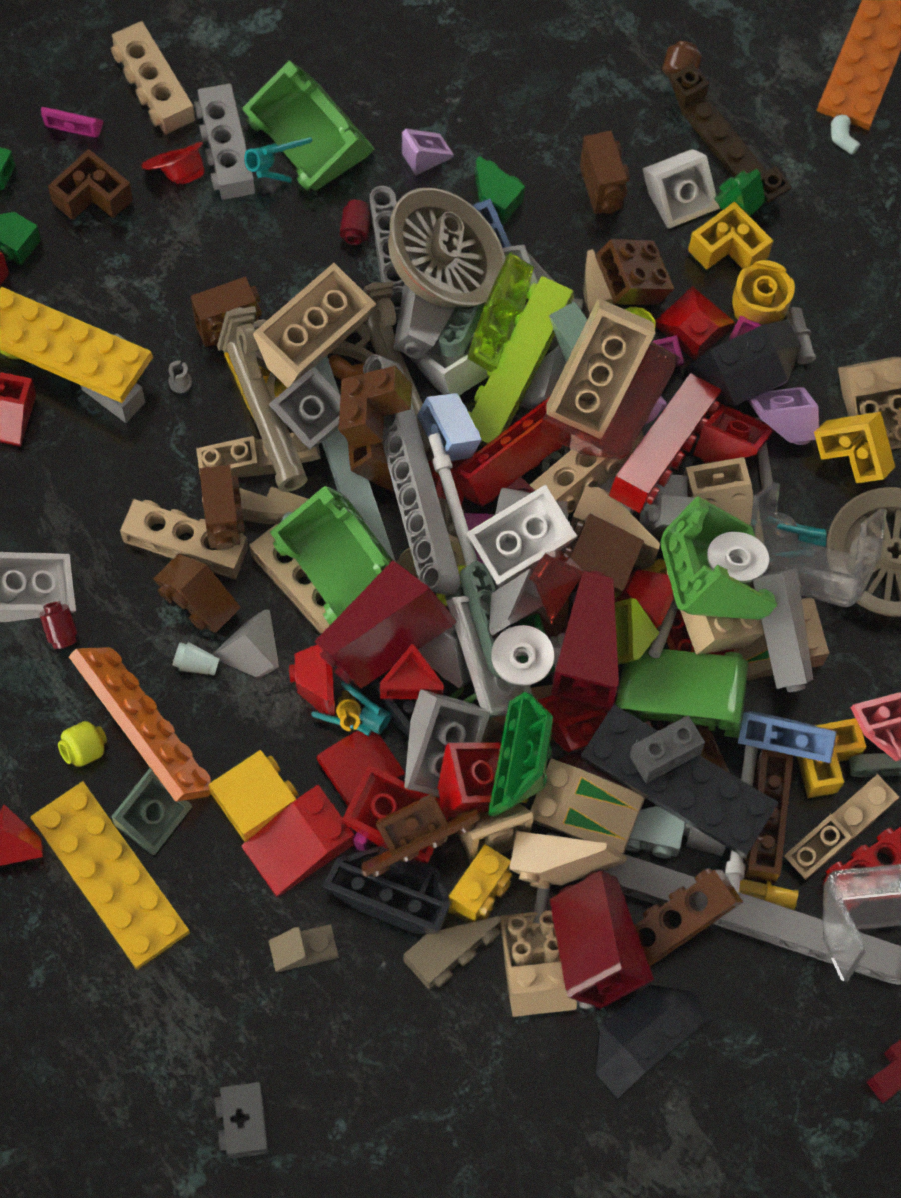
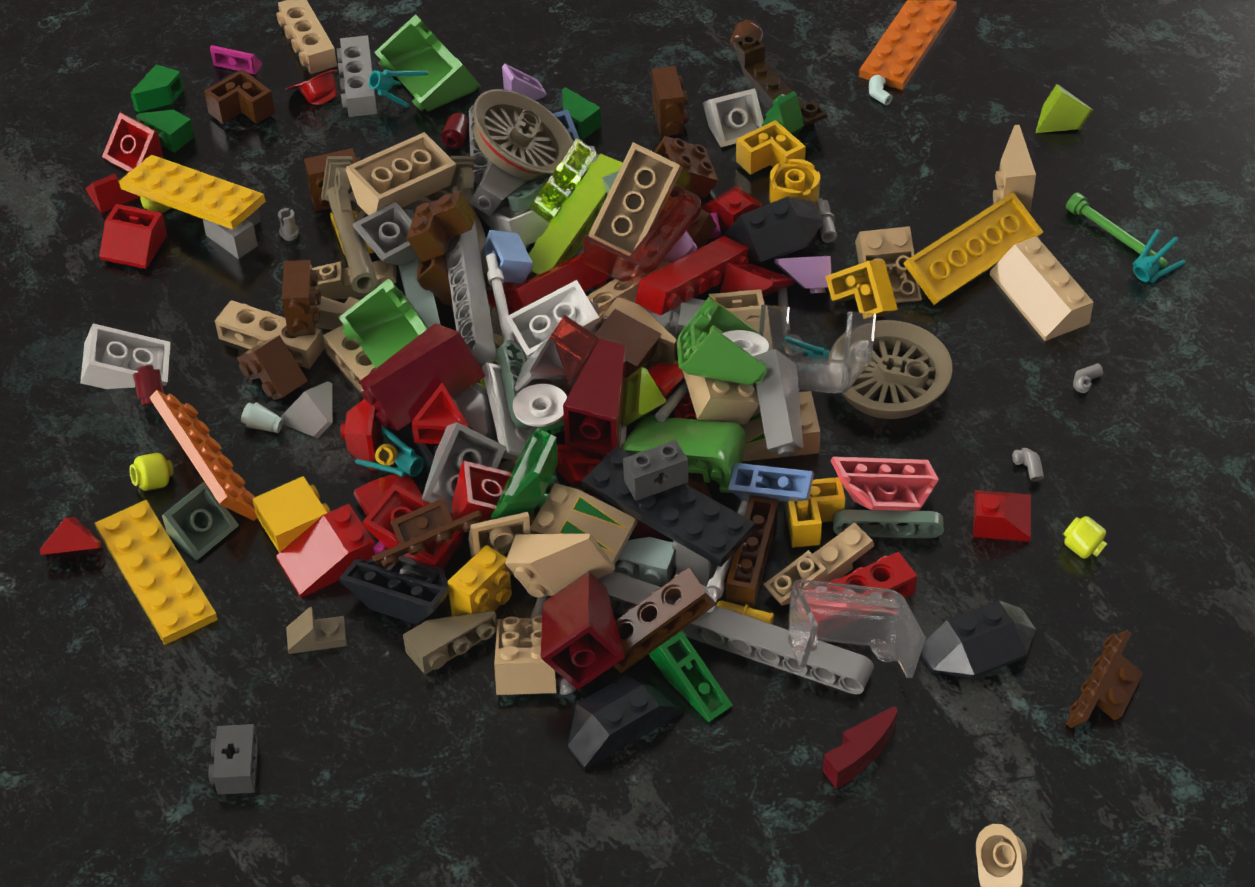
camera: 10 degrees right, 20 degrees down
(718, 980) = (690, 676): none -> green slope

